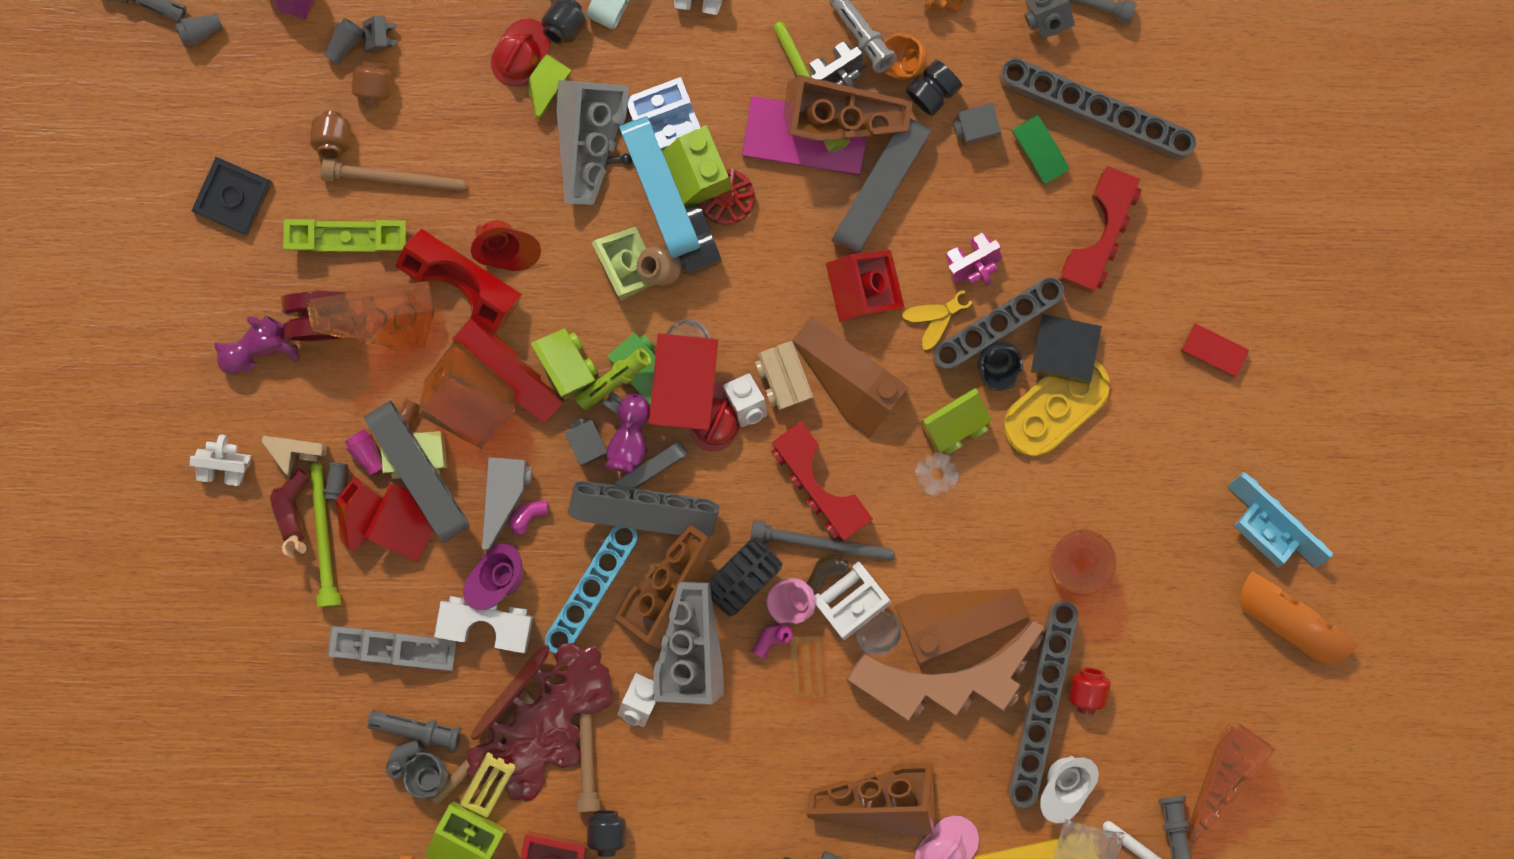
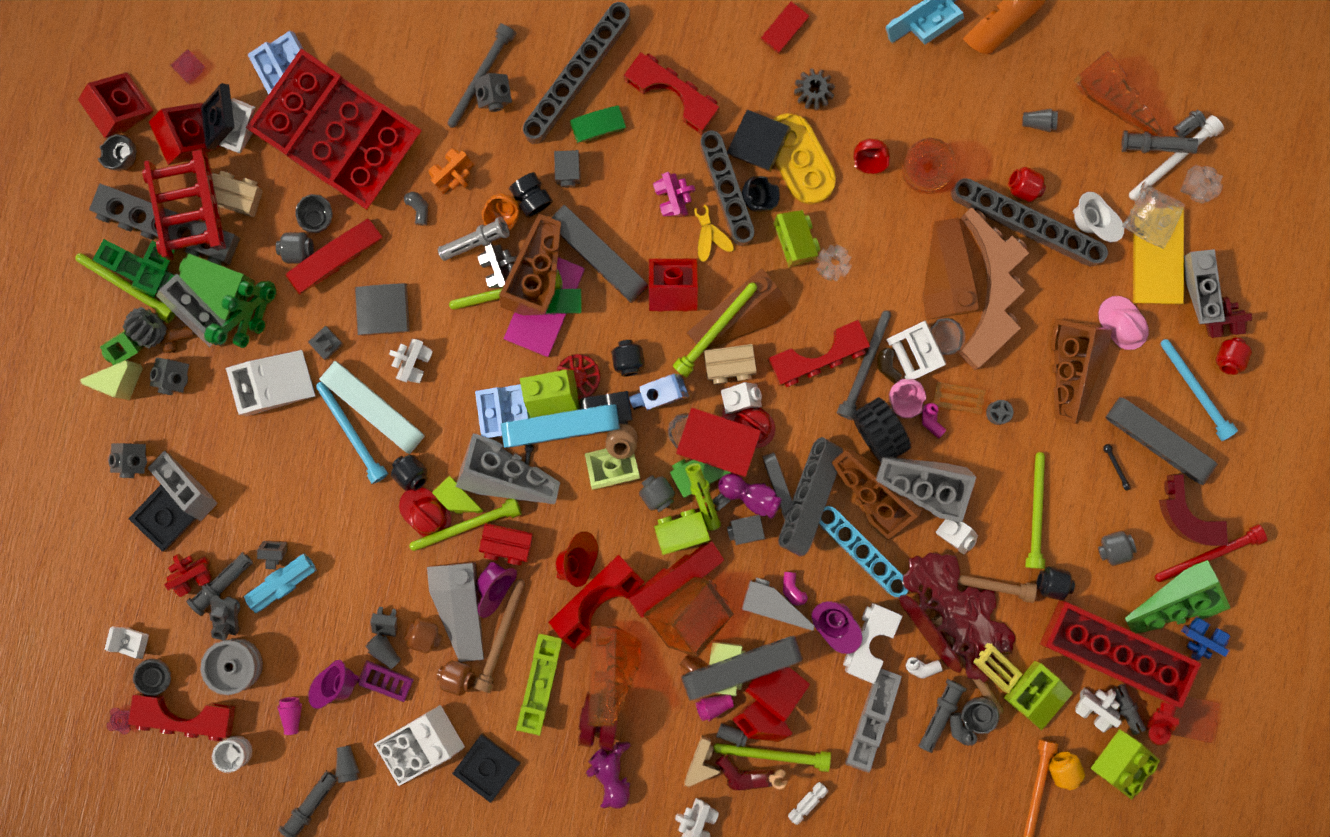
camera: 75 degrees left, 0 degrees up
(240, 110) = (419, 745): none -> white slope
(274, 591) = (808, 803): none -> white axle
(321, 41) = (388, 673): none -> magenta slope
(422, 115) = (457, 602): none -> light grey wedge
(448, 153) = (493, 587): none -> magenta piece
(465, 694) = (921, 669): none -> white arm
(504, 156) = (506, 543): none -> red brick
(548, 152) = (508, 509): none -> lime piece
(606, 323) = (657, 493): none -> dark grey head
(631, 803) = (1035, 558): none -> lime piece
(734, 306) = (669, 390): none -> torso
(761, 251) = (628, 358): none -> black head
(769, 322) = (686, 363): none -> lime piece
(803, 722) = (1003, 412): none -> dark grey wheel
(812, 158) = (565, 302): none -> green slope
(1079, 491) = (871, 156): none -> red hair
(1149, 413) = (815, 80): none -> dark grey gear
(1174, 692) = (1041, 120): none -> dark grey cone

